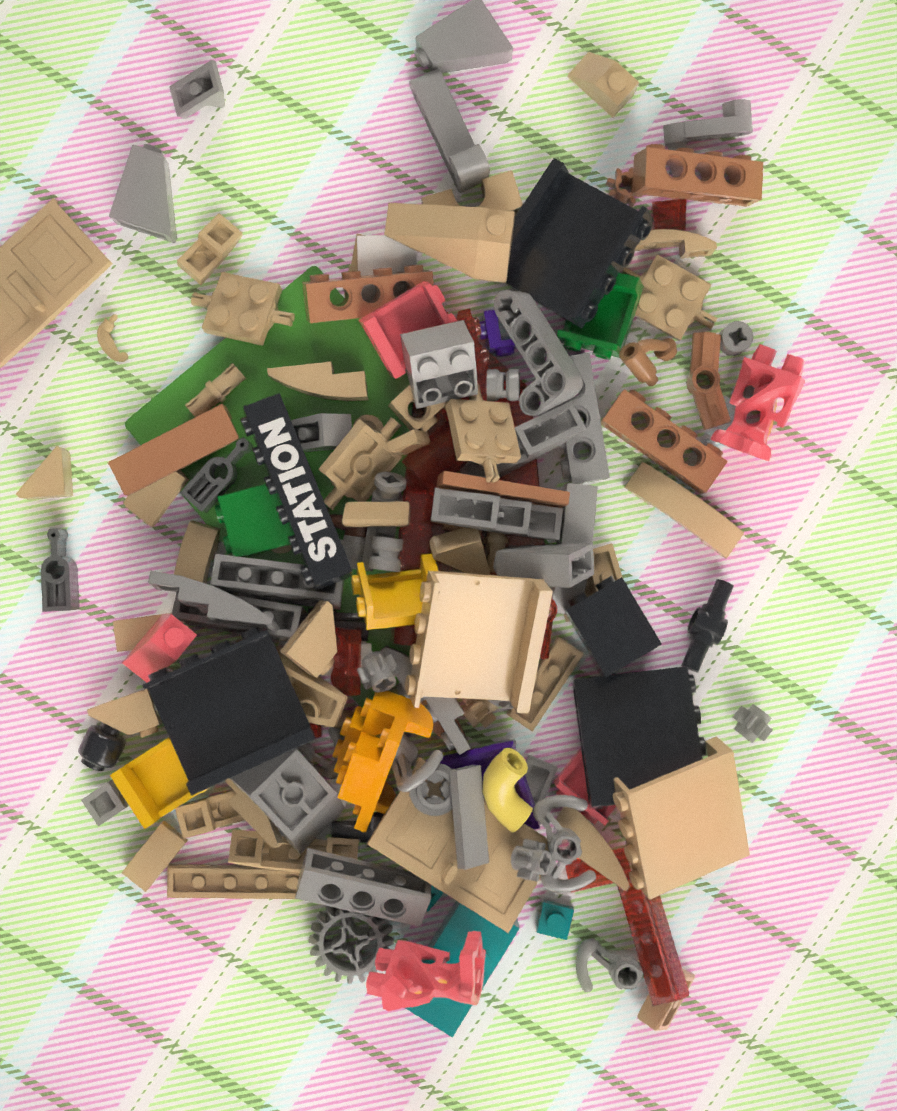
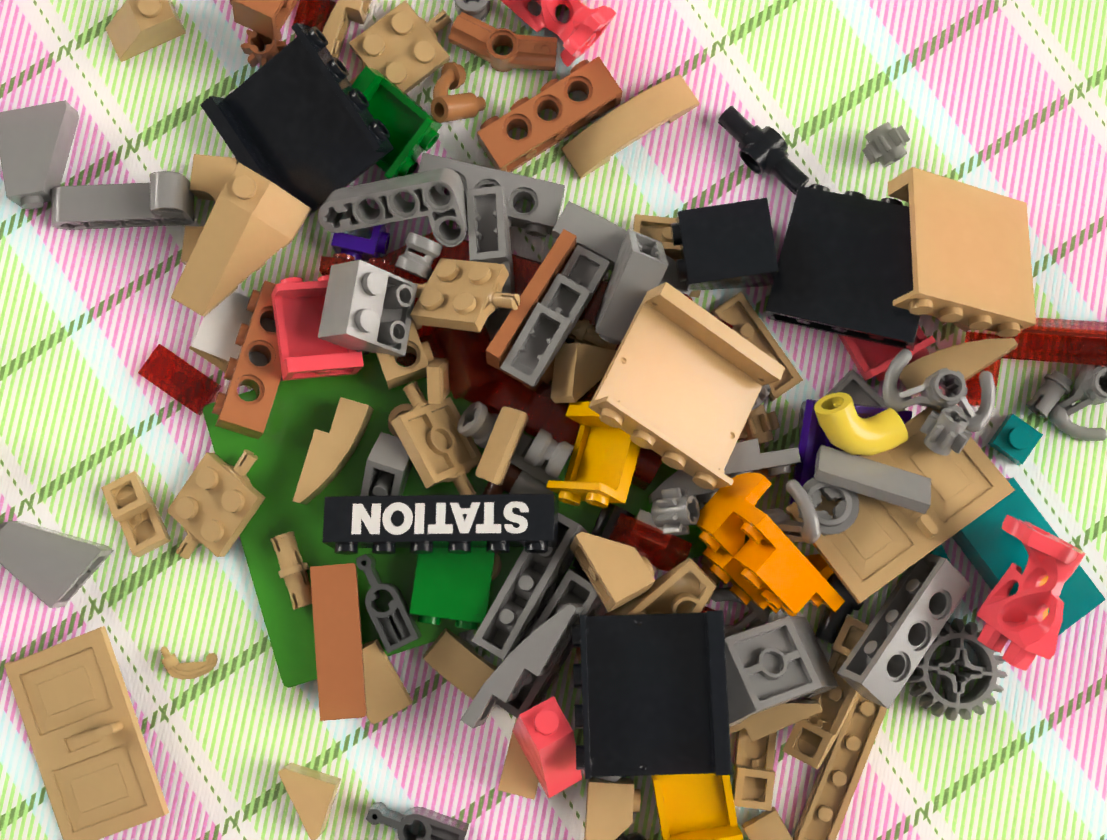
camera: 70 degrees left, 5 degrees down
(329, 236) = (179, 379): none -> clear red plate
(602, 933) = (1049, 393): none -> light grey pin

